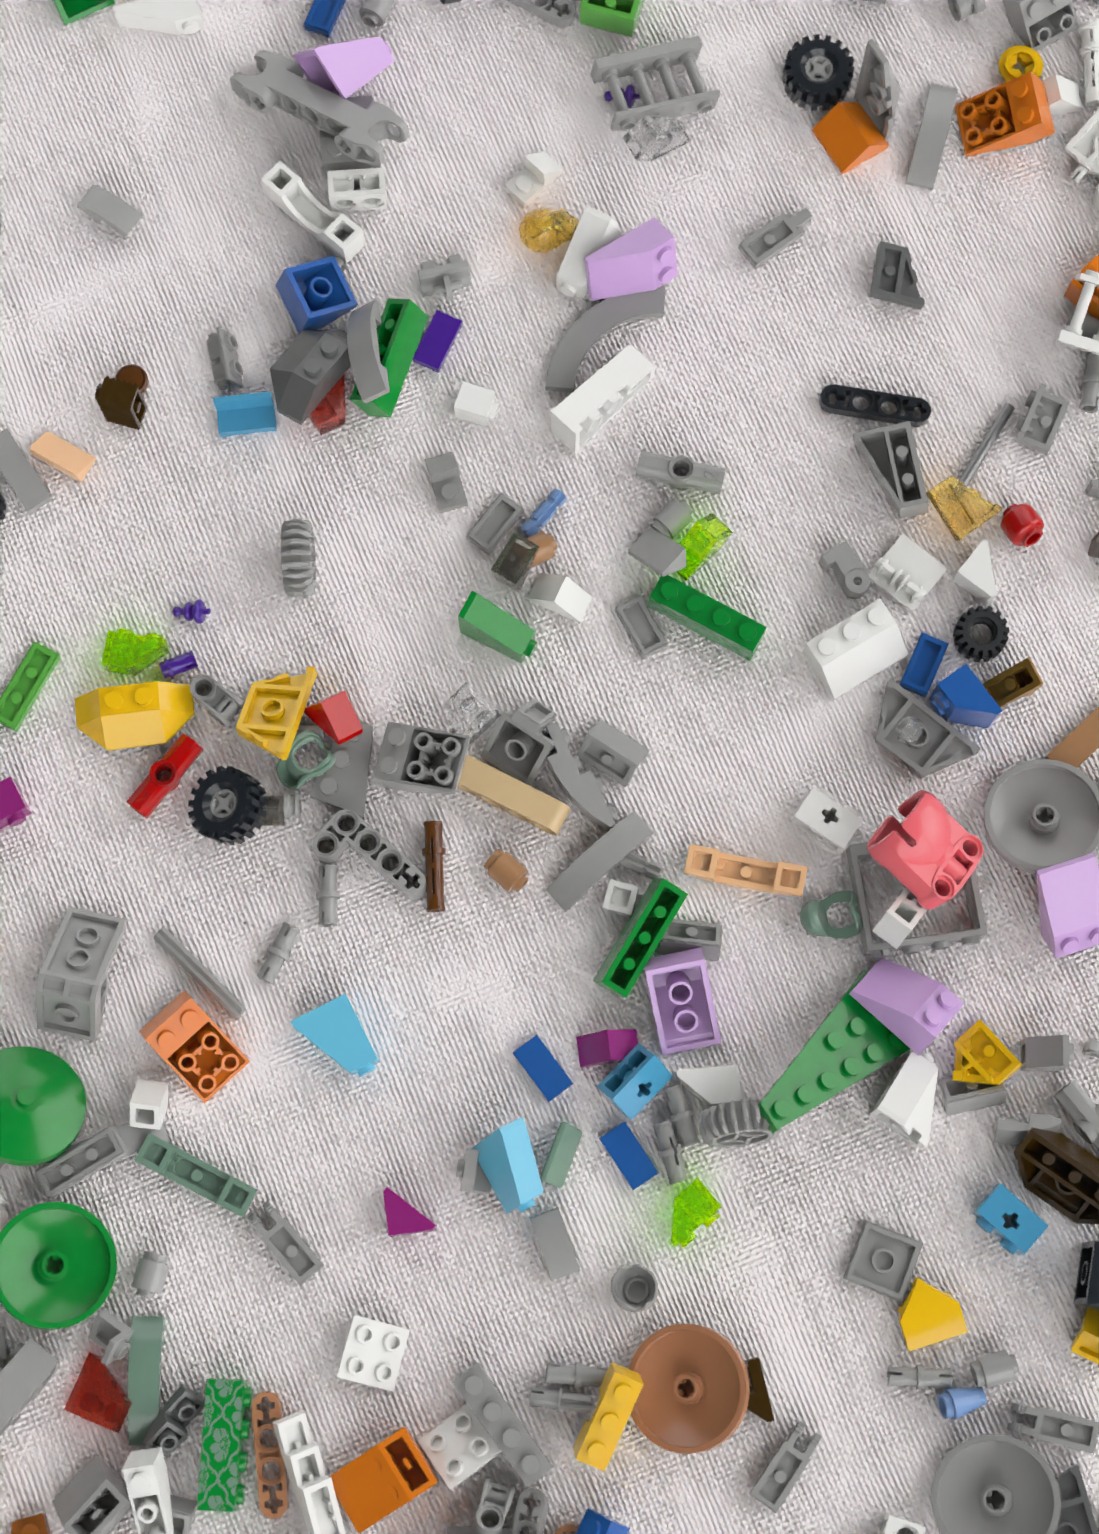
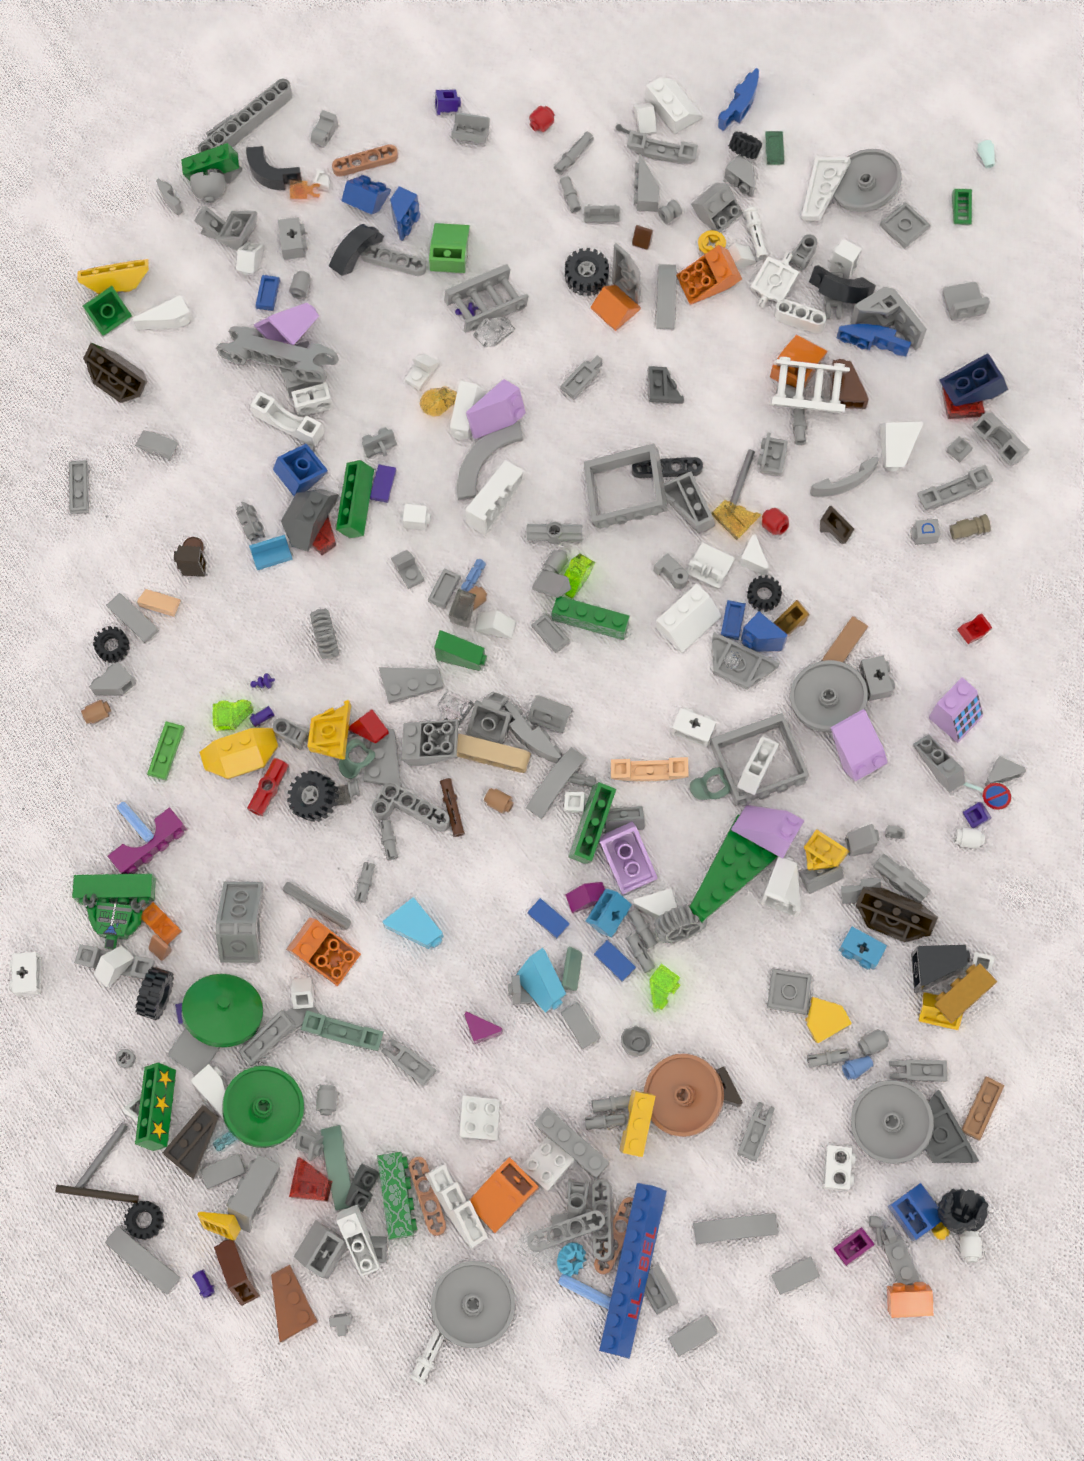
camera: 10 degrees left, 5 degrees down
(68, 87) = (114, 373): none -> dark brown wedge
(363, 352) = (339, 498): light grey slope -> none
(411, 658) = (409, 682): none -> light grey wing
(804, 380) = (619, 460): none -> light grey window
(915, 35) = (642, 237): none -> reddish brown slope
(926, 850) = (763, 733): coral piece -> none

